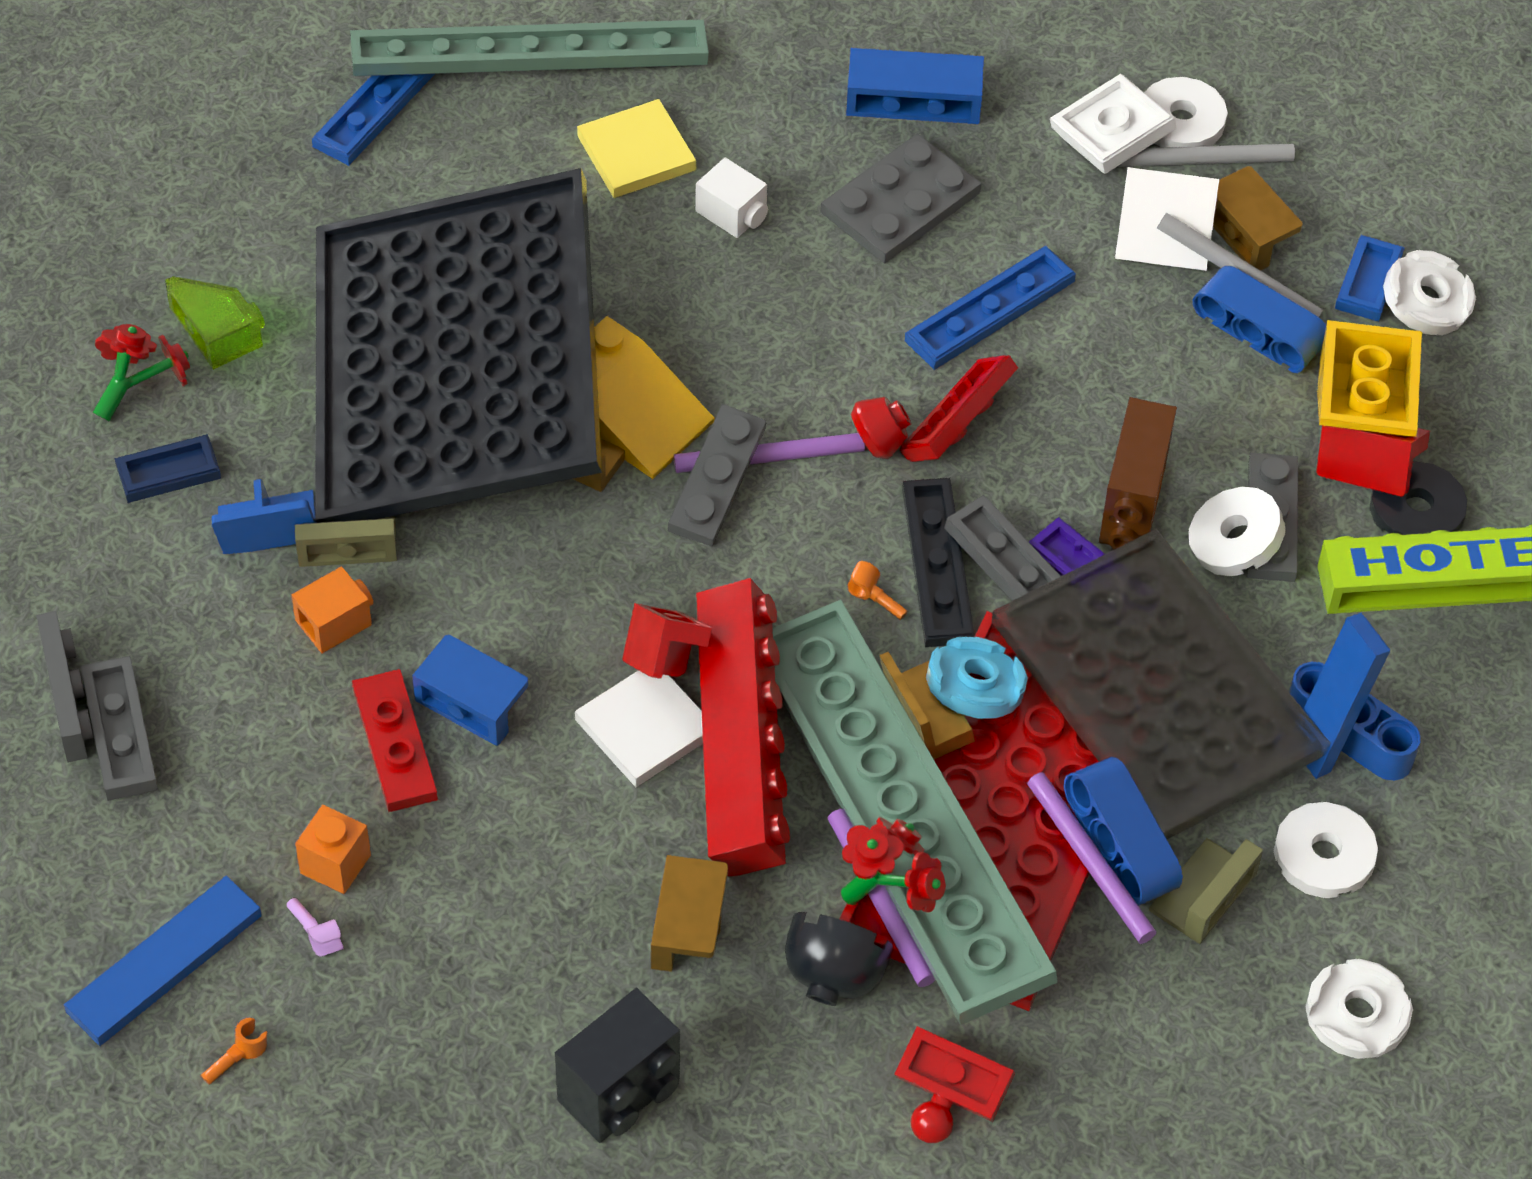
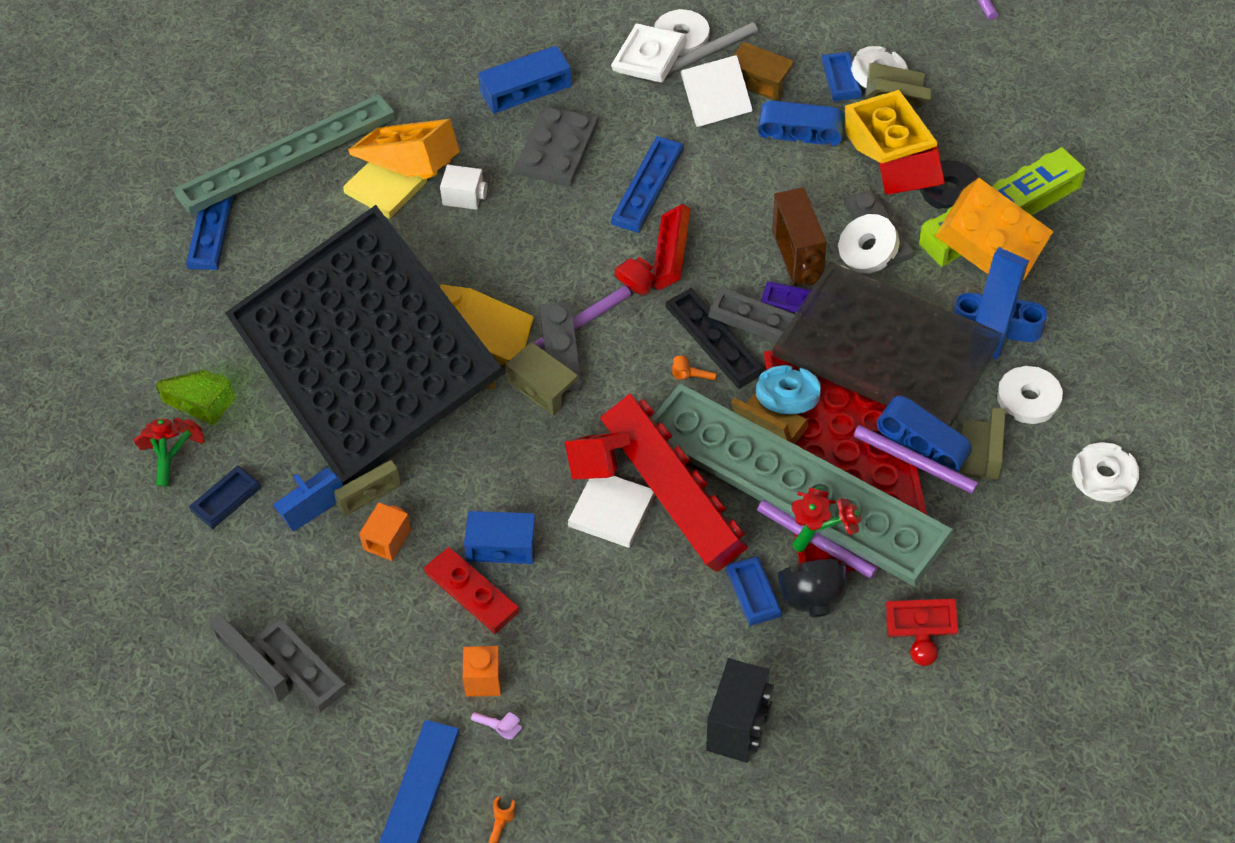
camera: 25 degrees left, 0 degrees up
(662, 501) = (540, 377): none -> olive panel
(688, 910) = (713, 602): pearl gold panel -> none
(693, 112) = (410, 148): none -> light orange slope
(758, 925) = (753, 591): none -> blue tile
(1222, 257) = (757, 98): light grey bar -> none
(1416, 597) = (989, 220): none -> light orange brick
(1446, 329) = (887, 79): none -> olive panel

